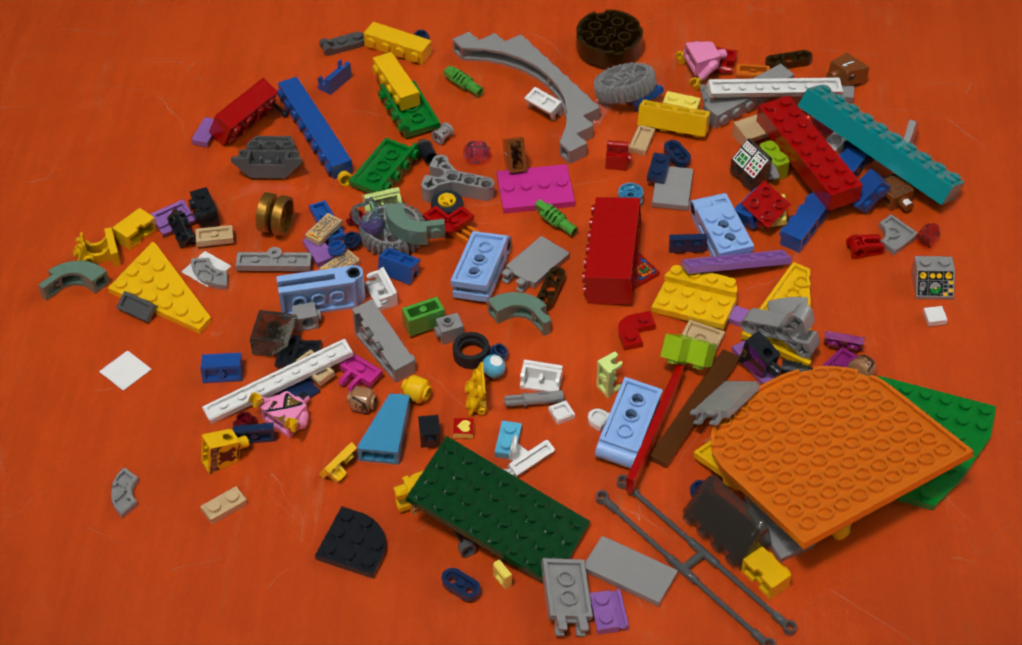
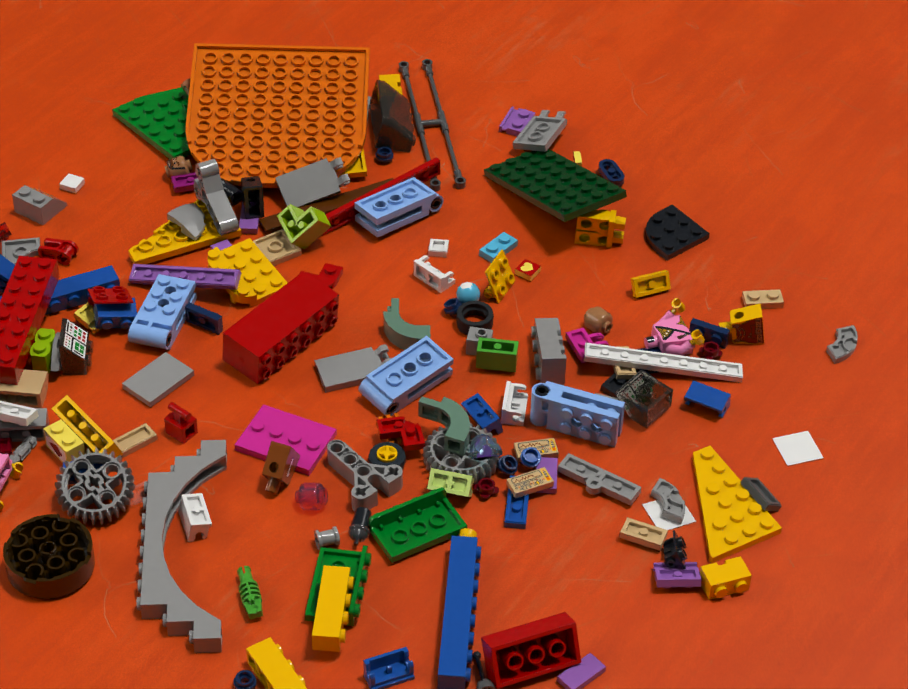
camera: 150 degrees left, 5 degrees down
(74, 273) = (813, 556): arch -> none
(97, 252) = (789, 571): yellow tile -> none
(204, 208) = (639, 564): black brick -> none
(268, 157) = (529, 593): dark grey wedge -> none
(274, 213) = (572, 509): pearl gold wheel -> none
(387, 432) = (594, 287): dark azure slope -> none
(417, 388) = (547, 304): yellow head -> none
(429, 431) = (559, 273): black brick -> none
(524, 459) = (500, 226): white piece -> none
(534, 398) = (453, 262): light grey axle -> none
(550, 282) = (370, 334): dark brown beam -> none
(555, 217) = (297, 395): bright green hinge -> none
(597, 418) = (413, 231): white tile -> none
(607, 374) = (381, 238): yellowish green hinge -> none
(630, 570) = (481, 135): light grey tile -> none
(631, 190) = (207, 384): dark azure wheel -> none
(658, 168) = (154, 393): dark blue plate -> none
(679, 155) = (119, 404): dark blue plate -> none
(837, 340) = (167, 191): magenta plate -> none

